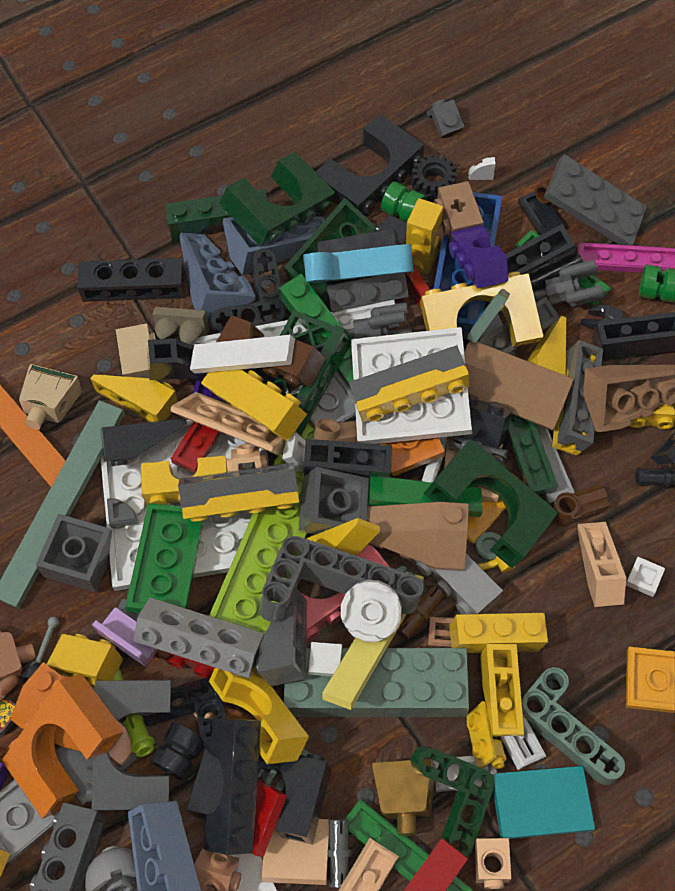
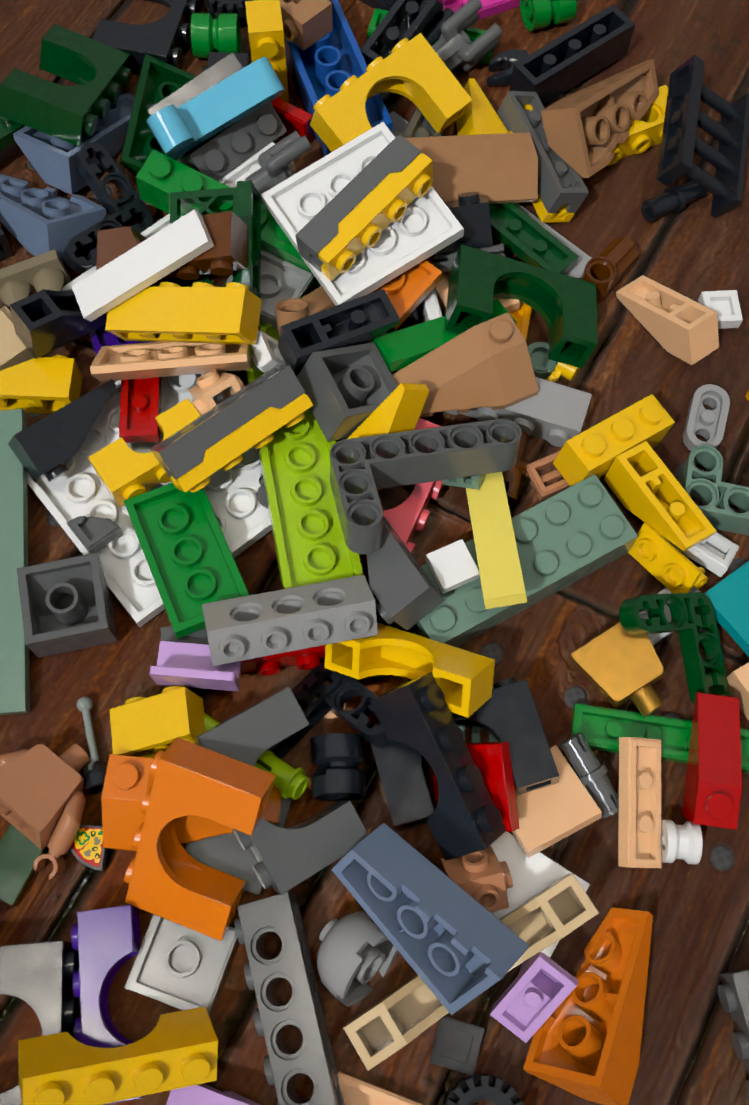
camera: 35 degrees left, 5 degrees up
(371, 610) = (477, 481): white tile -> none
(479, 260) = (361, 45): dark purple arch -> none
(488, 315) = (403, 97): sand green tile -> none
(580, 652) = (704, 421): none -> light grey plate

